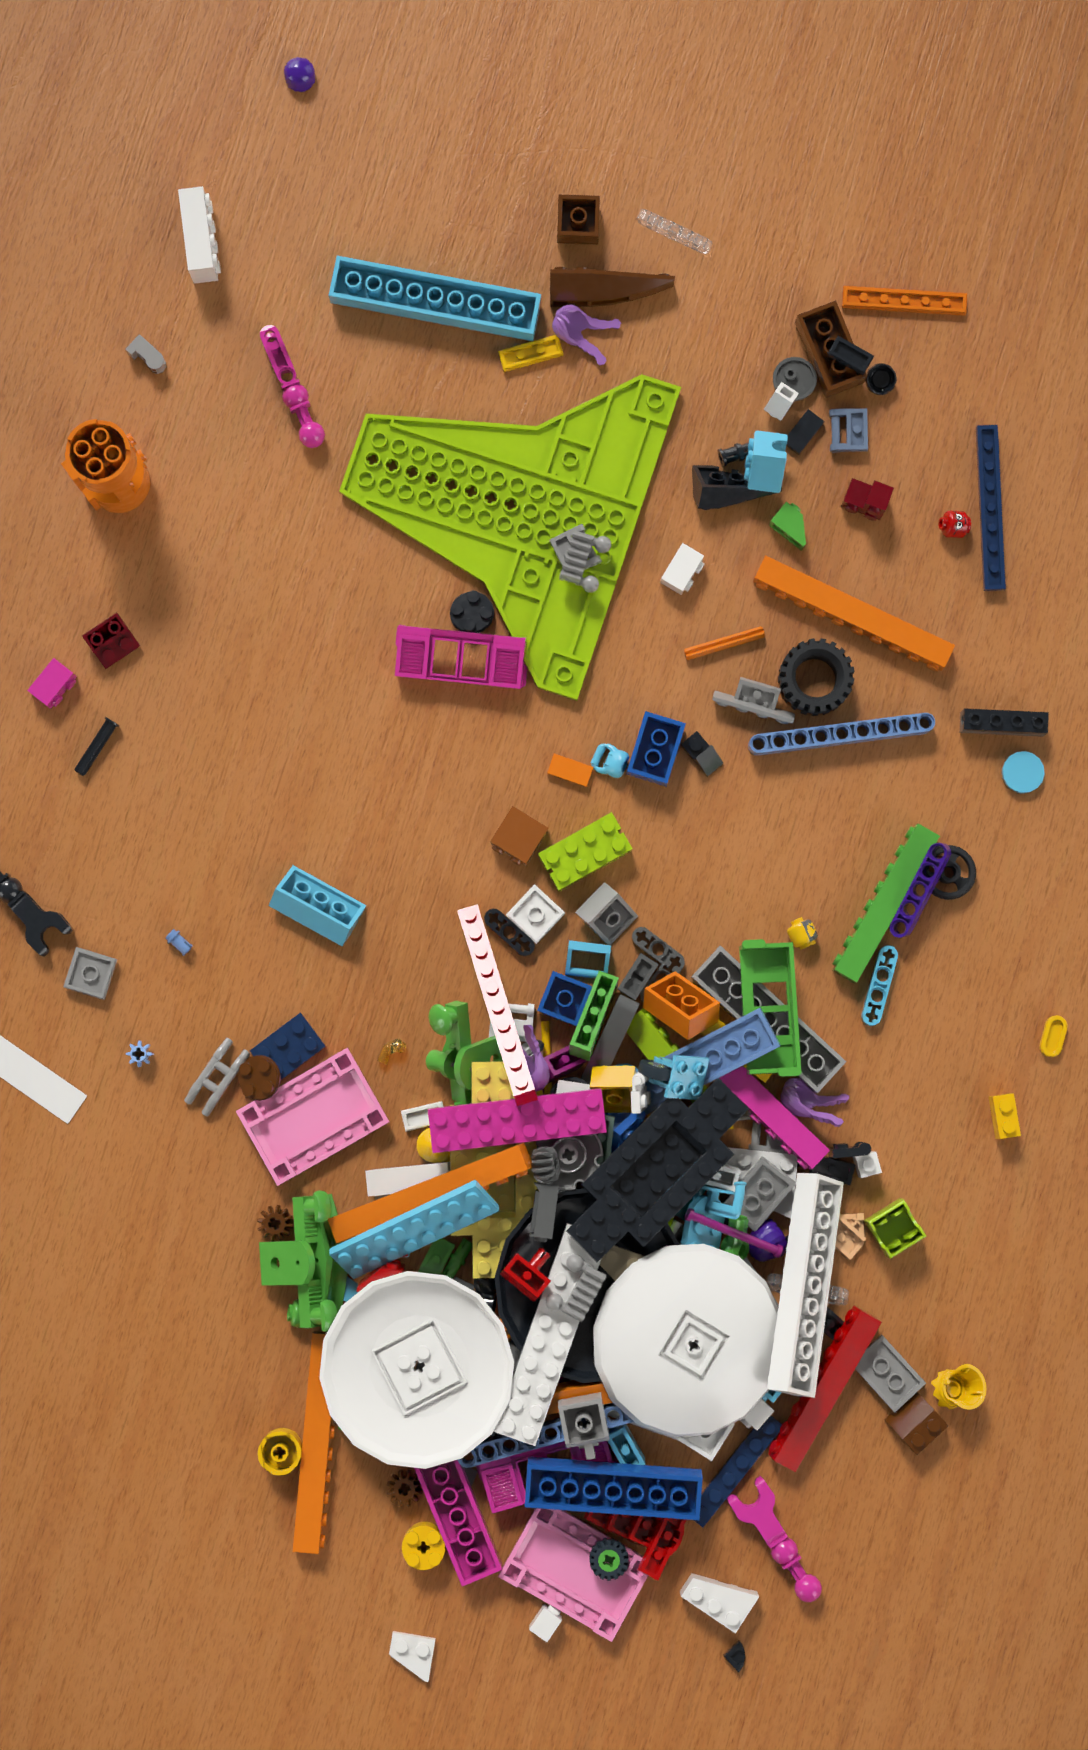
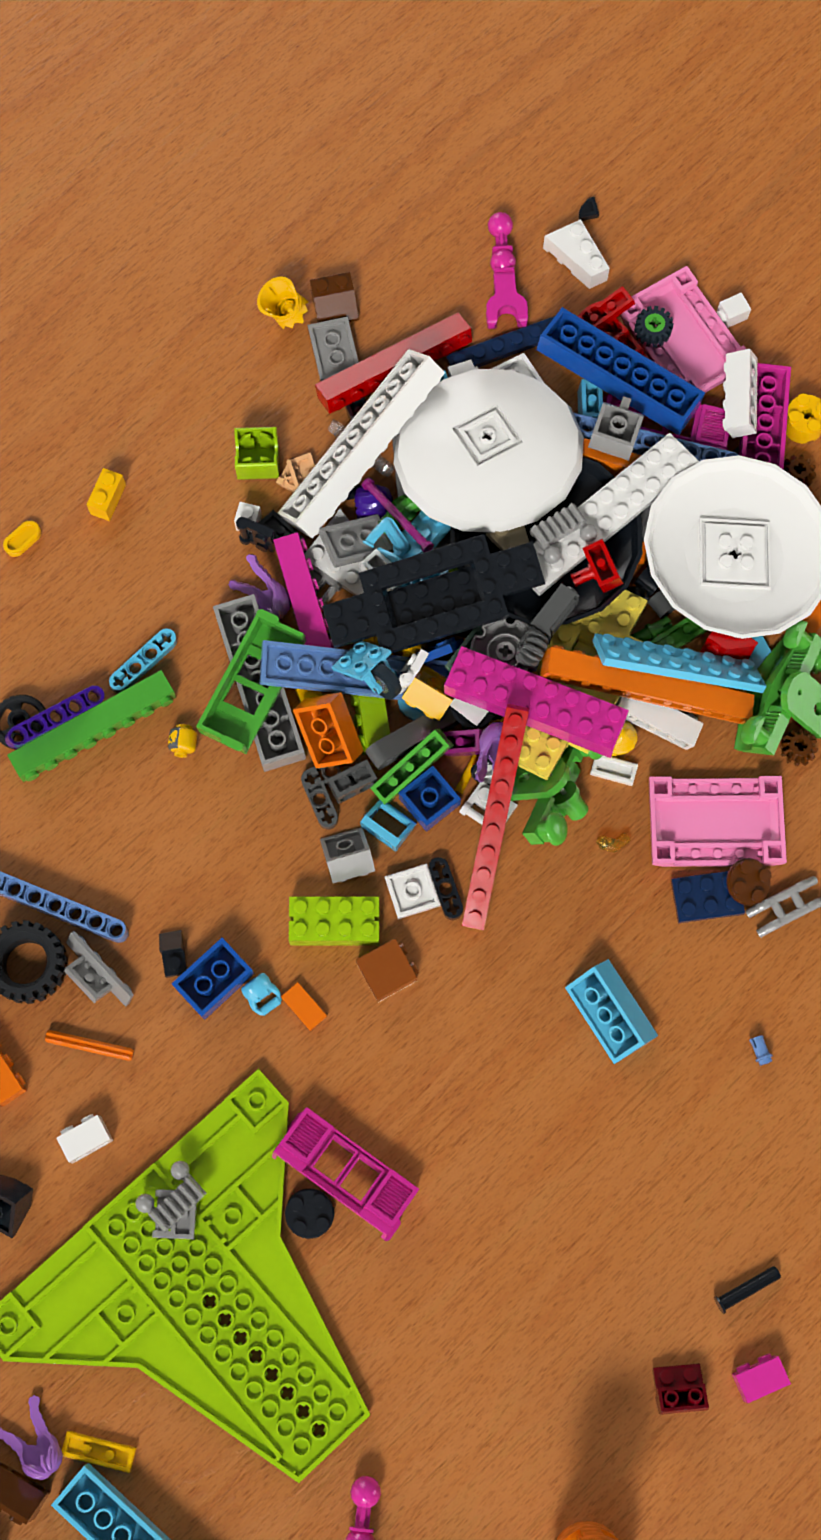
camera: 150 degrees left, 10 degrees down
(493, 1529) = (740, 393): none -> white brick

